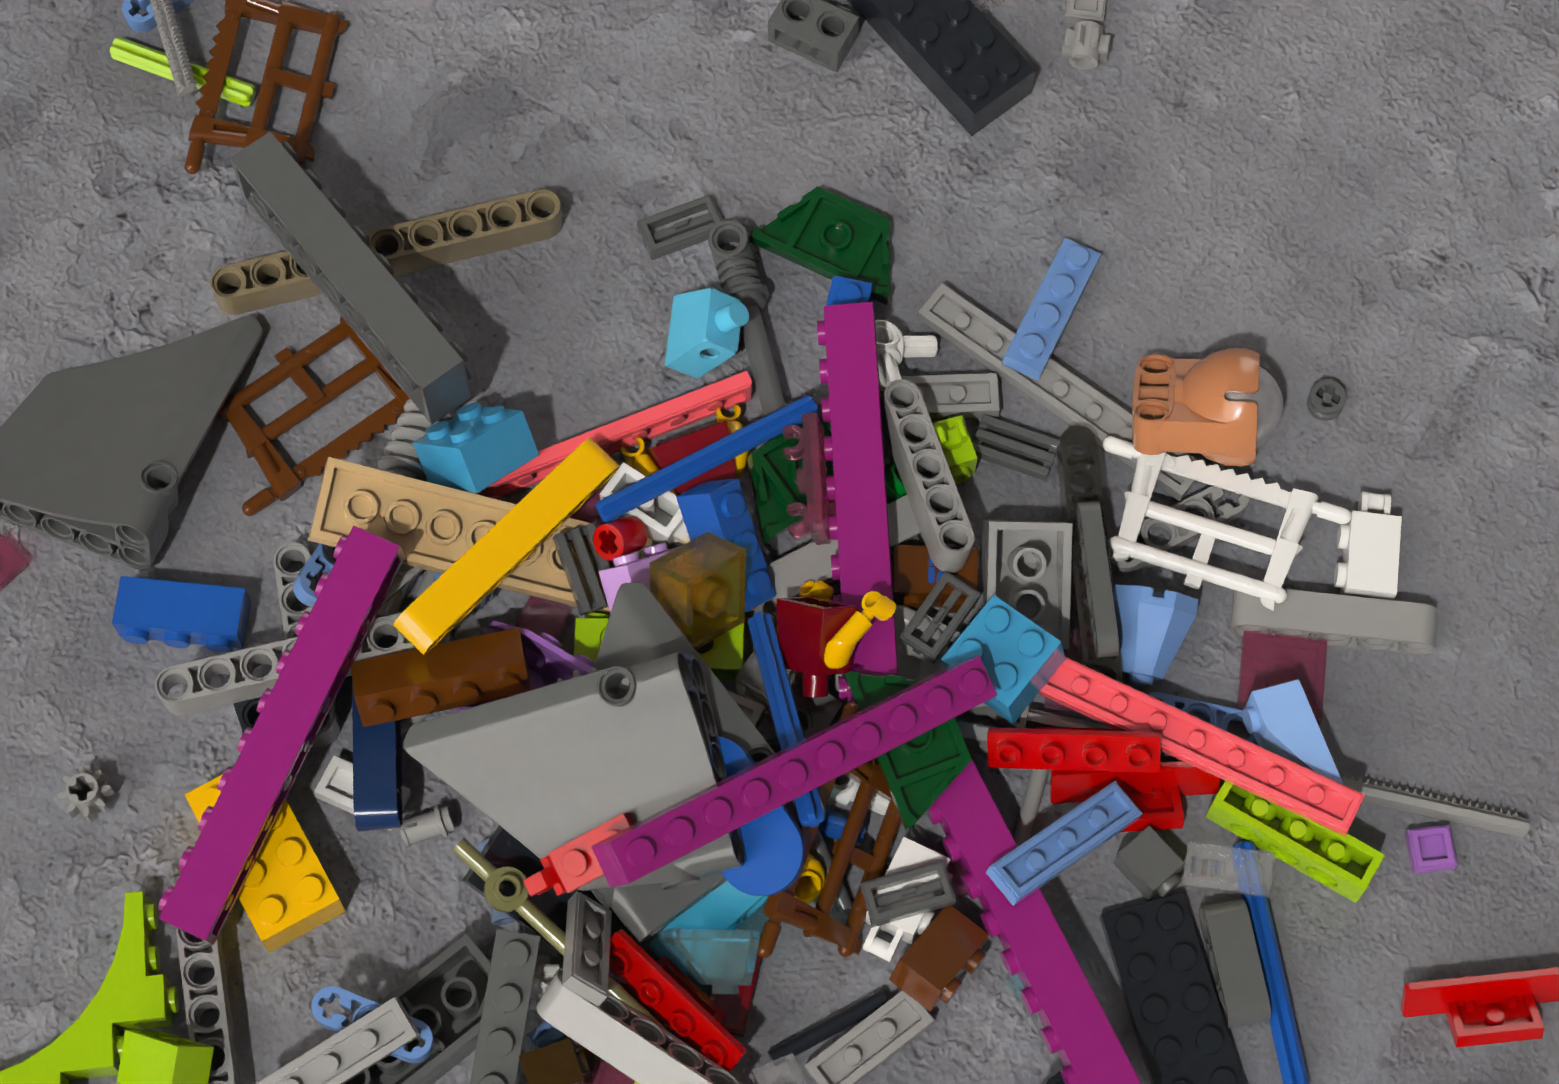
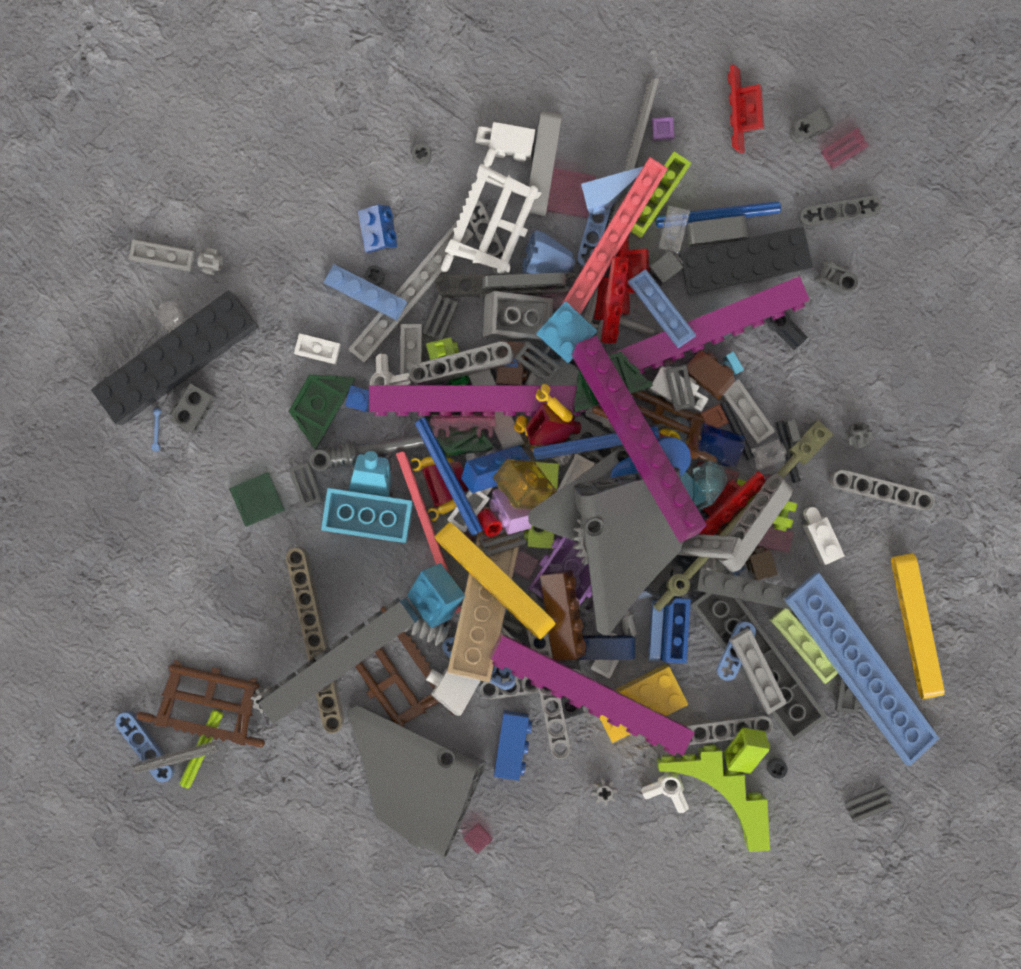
camera: 85 degrees left, 20 degrees up
(90, 911) = (674, 792): none -> white axle
(290, 494) = (452, 690): none -> white torso
(409, 880) = (655, 633): none -> medium blue beam
(414, 912) = (675, 631): none -> blue brick
(575, 862) = (668, 546): hinge -> none
(626, 328) = (367, 515): none -> medium azure brick
(650, 145) = (257, 499): none -> clear green tile
(796, 987) = (722, 444): none -> clear blue brick
(851, 980) = (714, 416): none -> copper tile
(938, 233) = (317, 348): none -> white plate
(964, 1007) = (733, 362): none -> medium azure plate
(1082, 338) = (368, 274): none -> black bush
(1177, 326) = (377, 228): none -> bracket
(1205, 406) = (429, 217): nougat piece -> none

